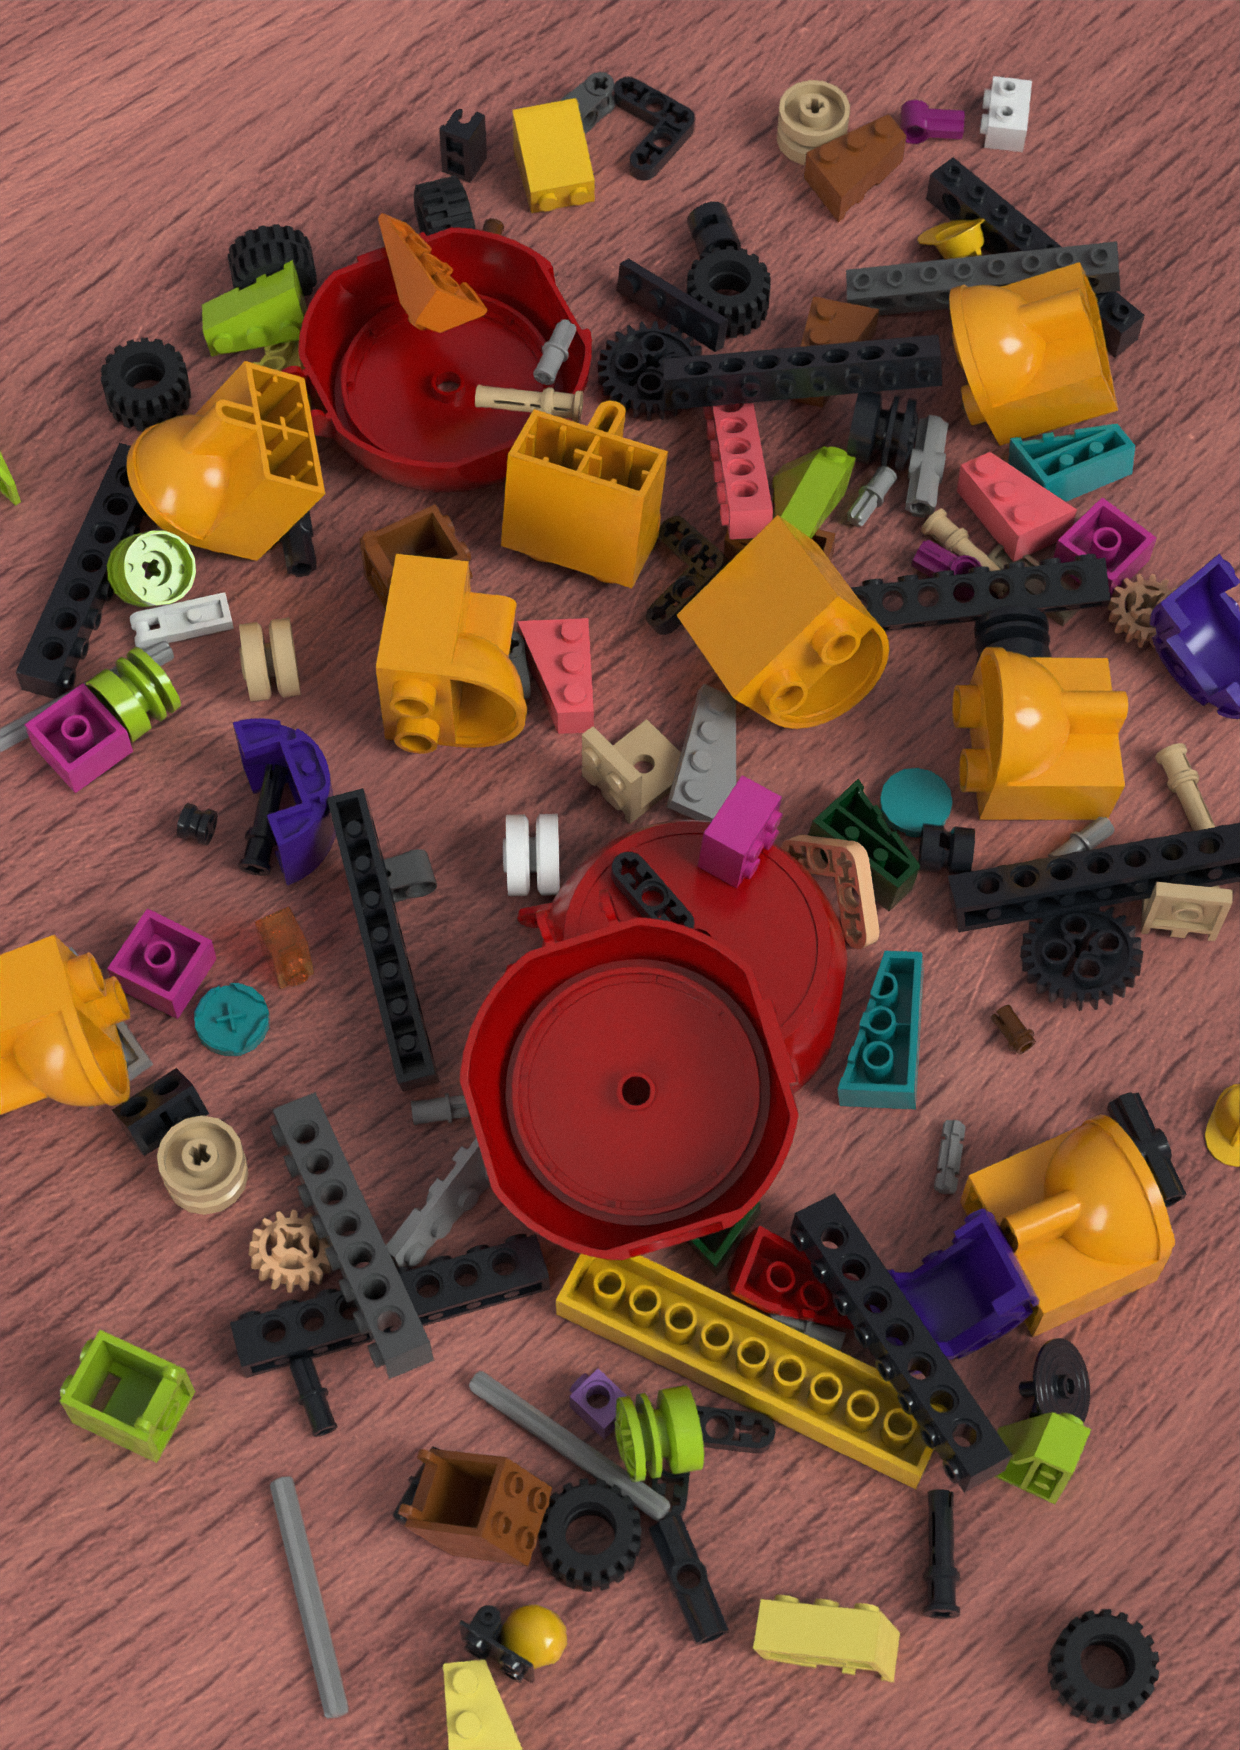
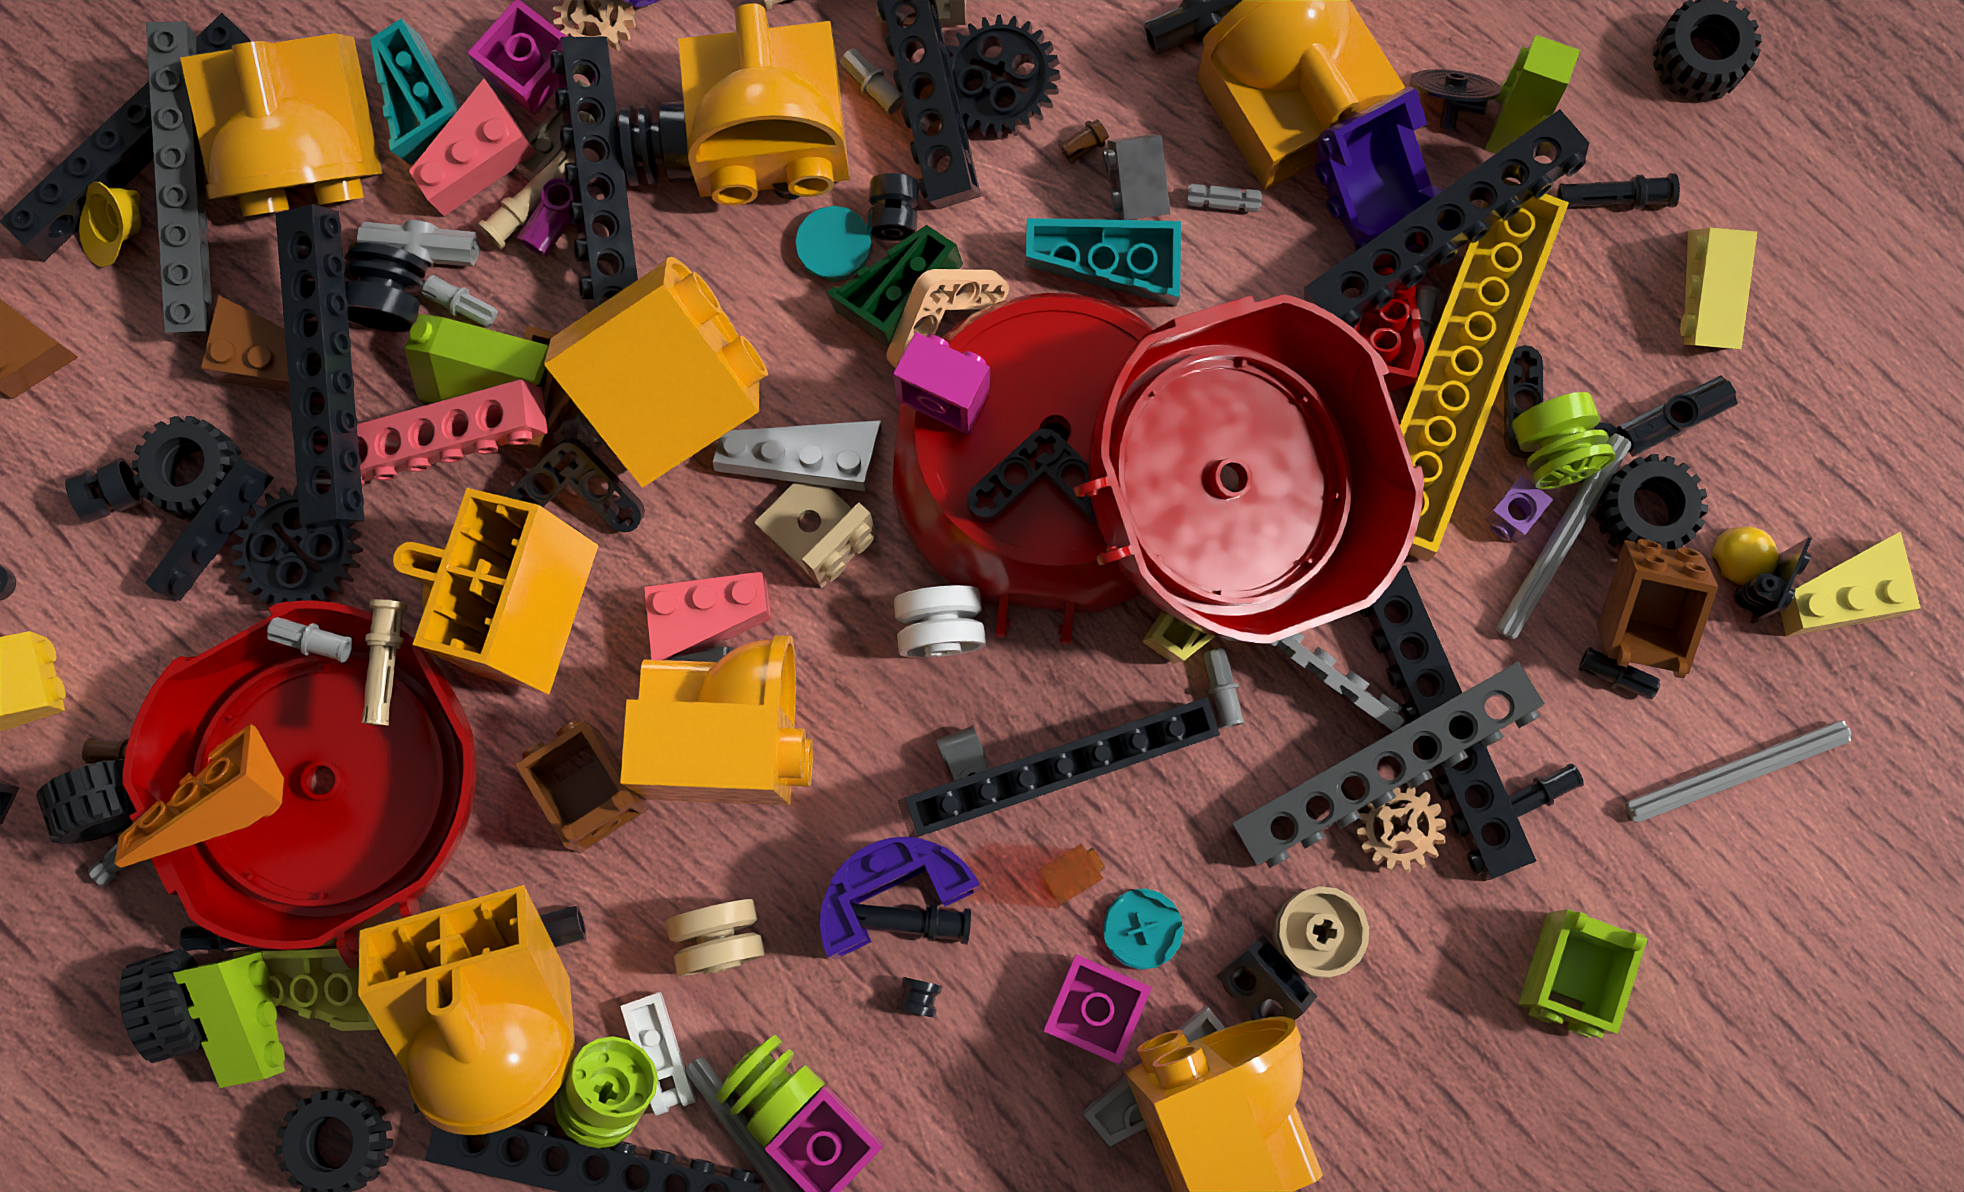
camera: 90 degrees left, 15 degrees up
(968, 1060) = (1139, 174): none -> flat silver brick

